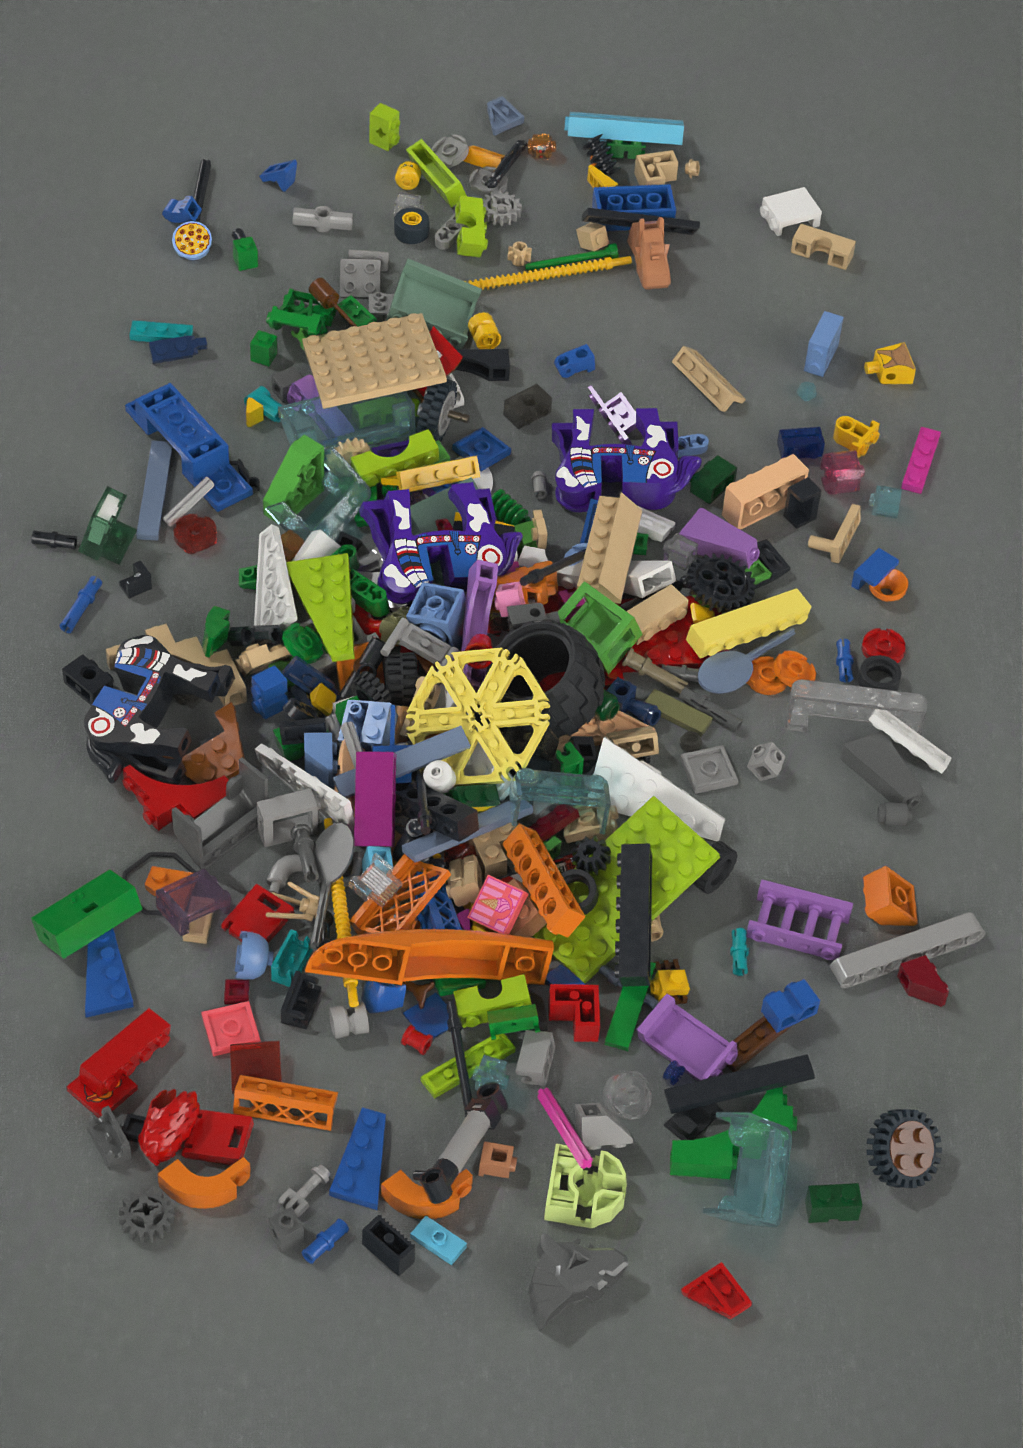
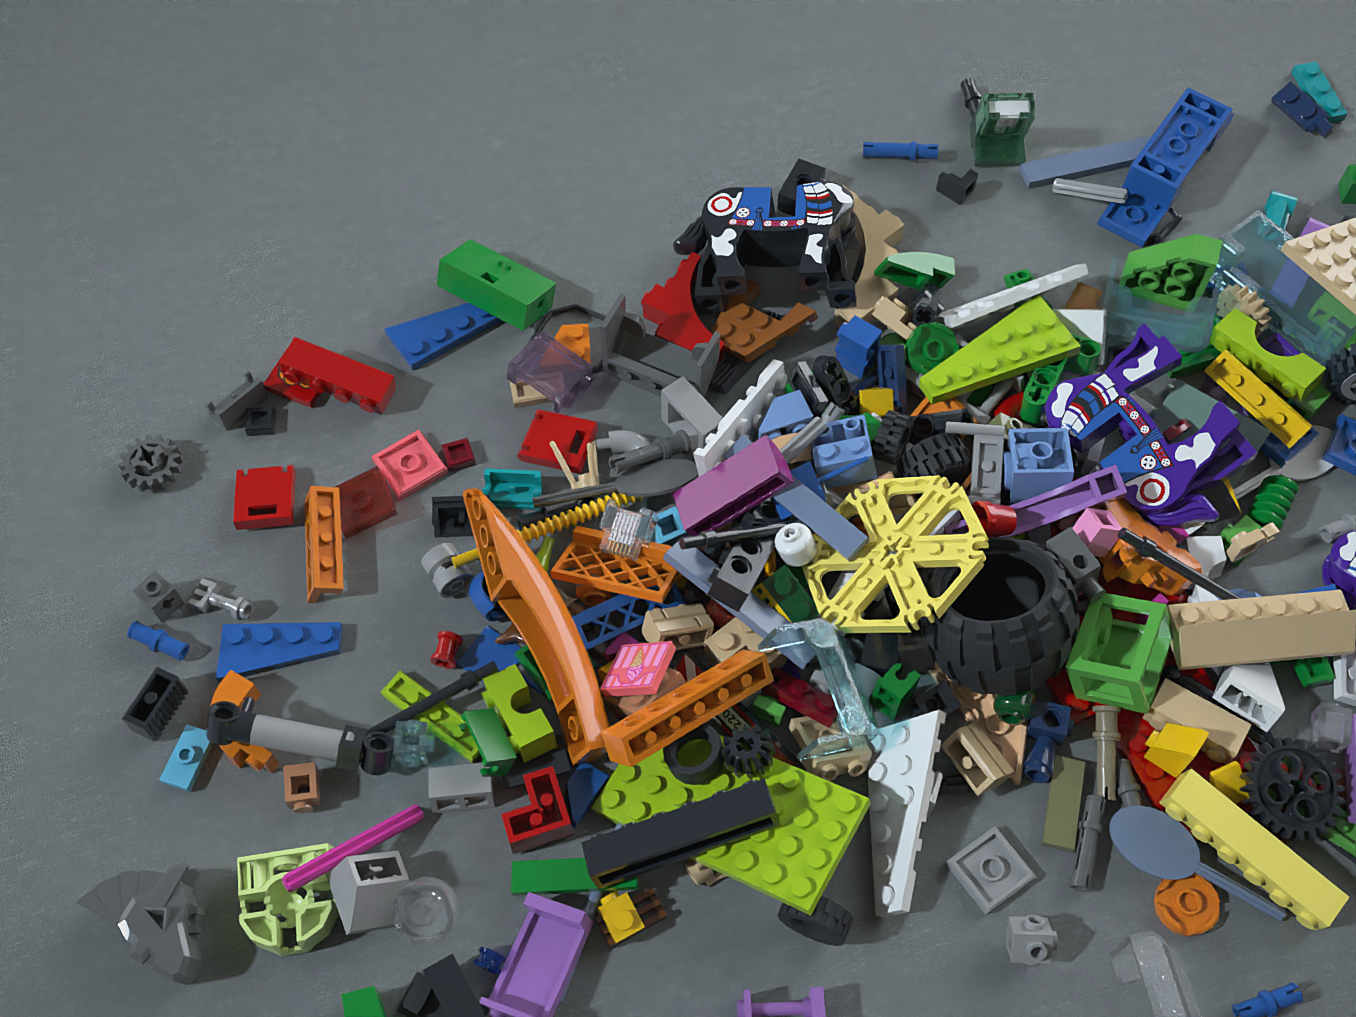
camera: 75 degrees right, 10 degrees up
(168, 1124) = (255, 440): red head -> none
(195, 542) = (1049, 224): clear red plate -> none
(203, 1191) = (190, 492): orange arch -> none
(252, 956) = (494, 445): medium blue cylinder -> none
(254, 412) = (1255, 202): yellow slope -> none
(671, 629) = (1174, 747): none -> yellow slope
(690, 741) = (1021, 833): clear smoke plate -> none
(739, 951) = (709, 993): teal pin -> none
(792, 667) = (1210, 936): orange tile -> none

